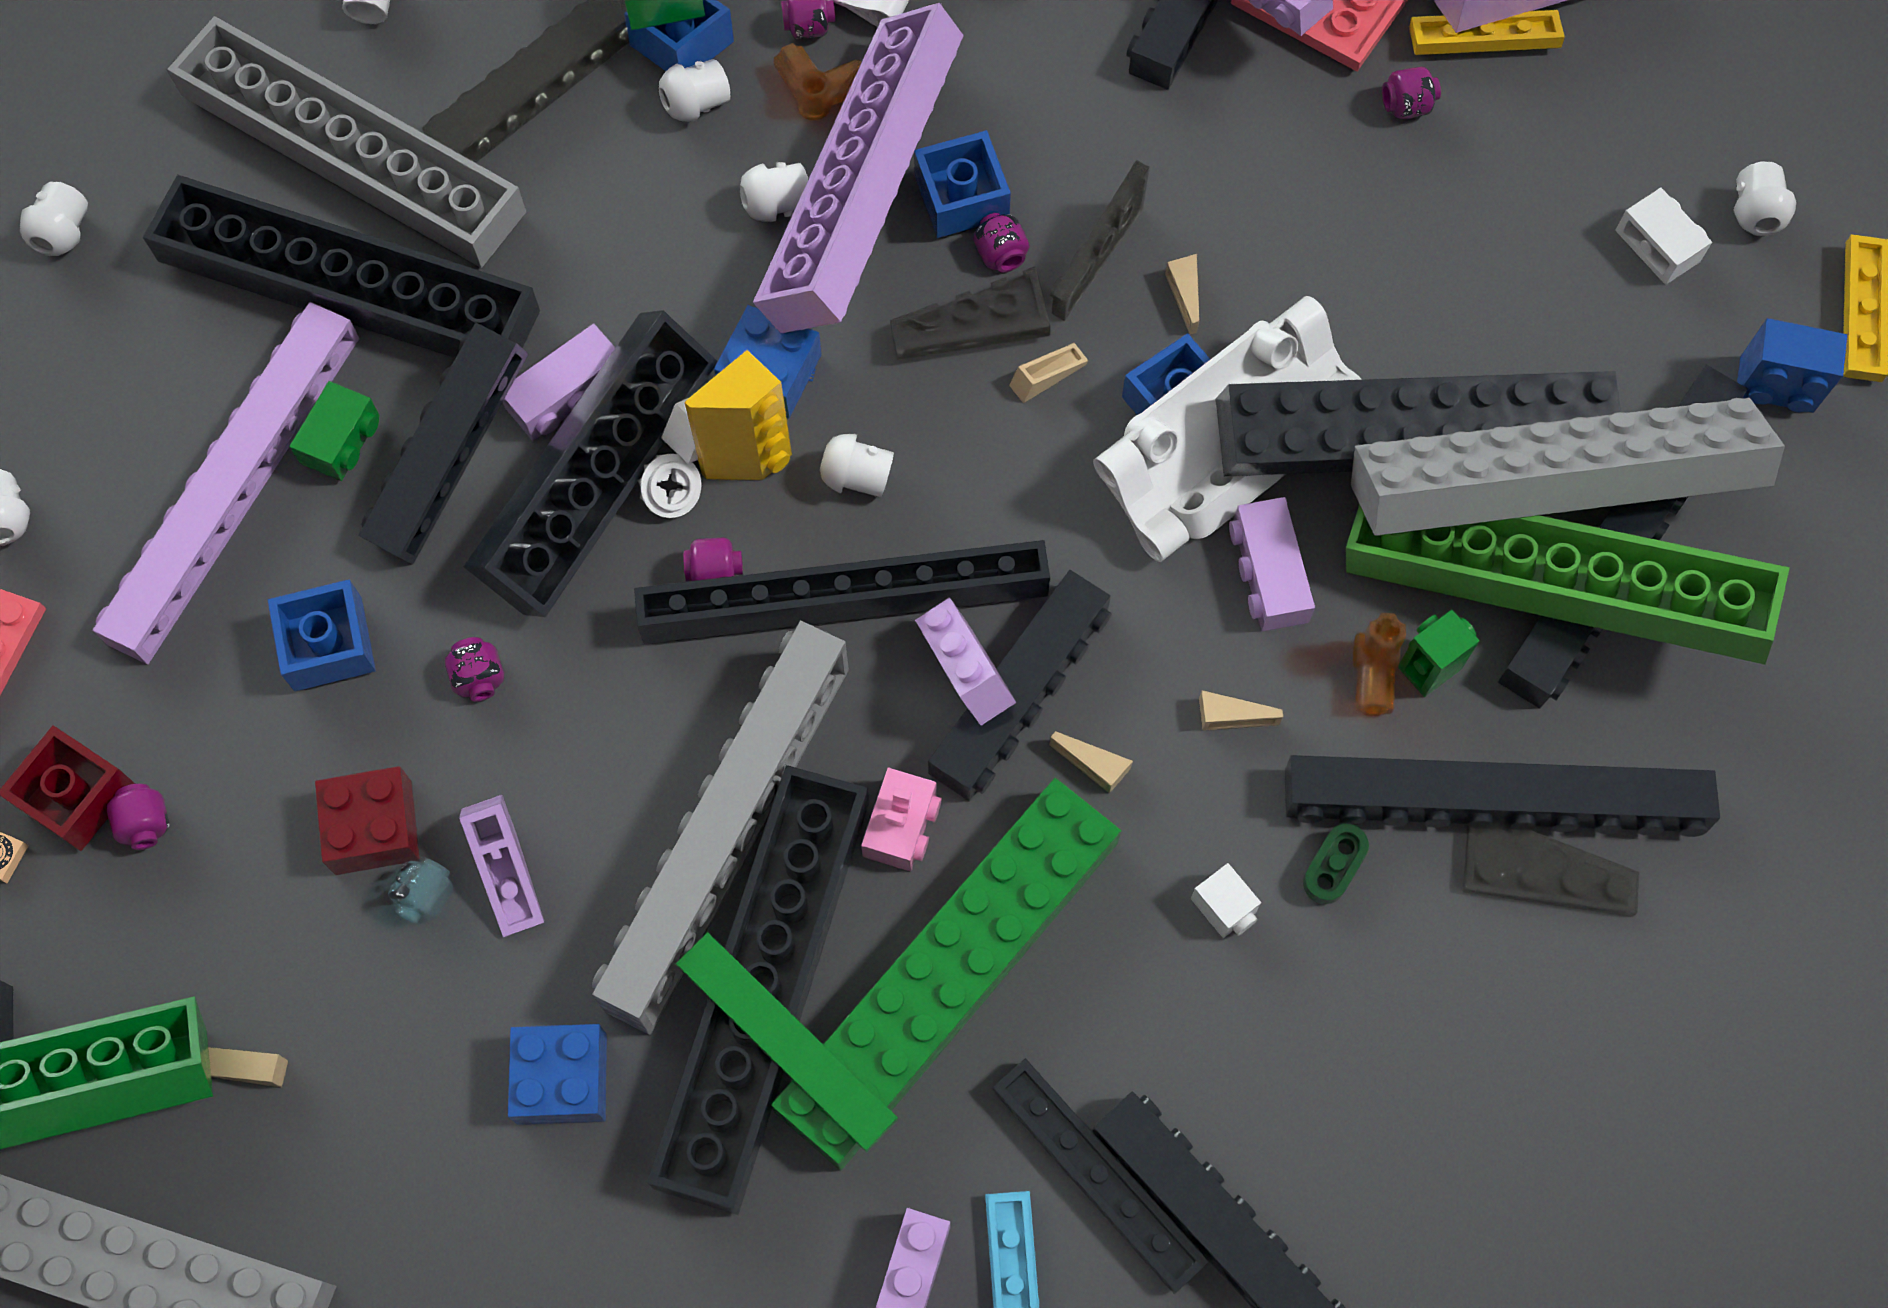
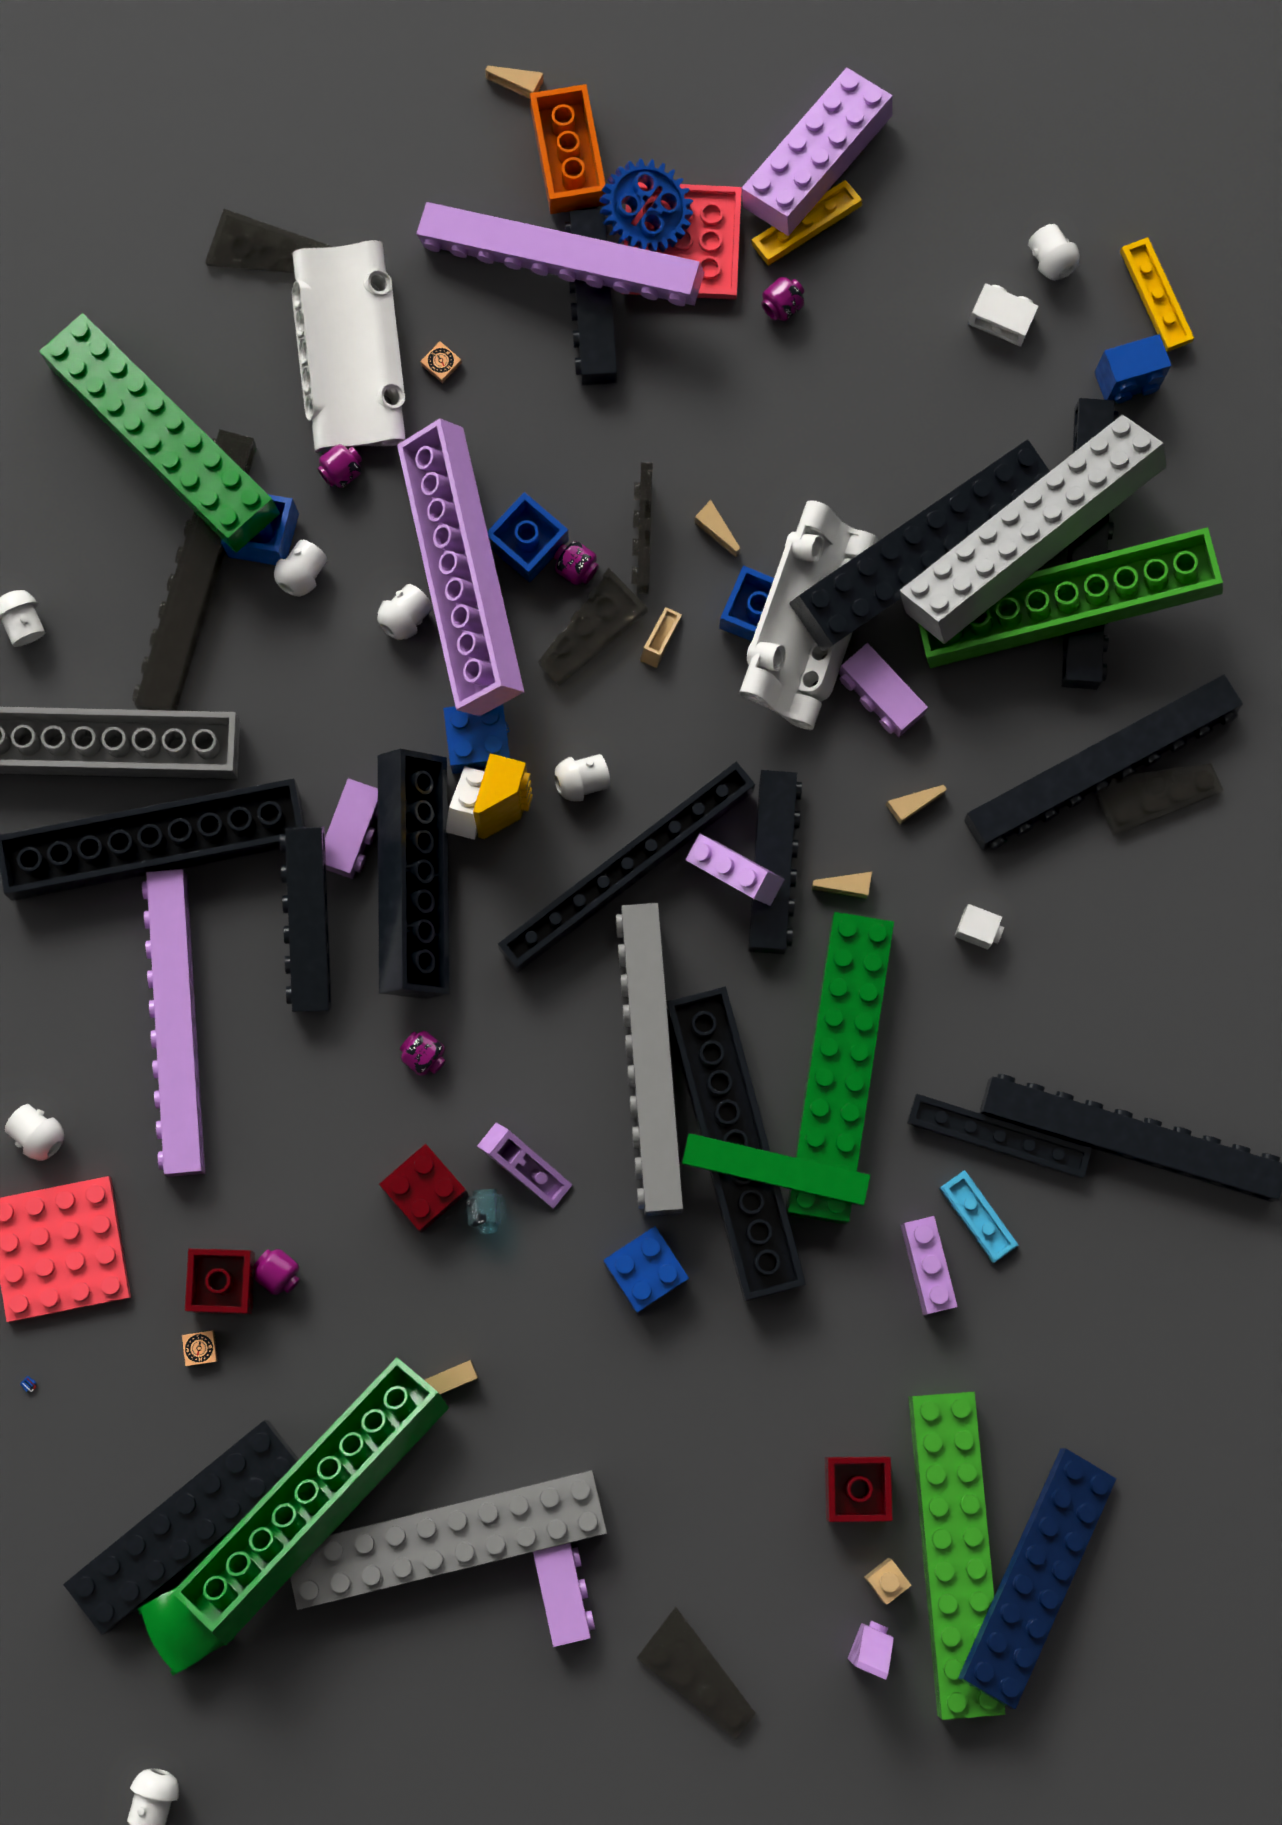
camera: 35 degrees left, 10 degrees up
(321, 635) = (313, 1089): blue brick -> none
(335, 431) = (225, 950): green brick -> none
(679, 500) = (477, 865): white gear -> none
(712, 559) = (530, 895): magenta head -> none
(811, 87) = (368, 516): clear orange piece -> none
(900, 820) = (752, 992): bright pink brick -> none
(1334, 865) = (1030, 865): dark green plate -> none
(1376, 660) = (982, 718): clear orange piece -> none
(1438, 651) = (1018, 692): green brick -> none

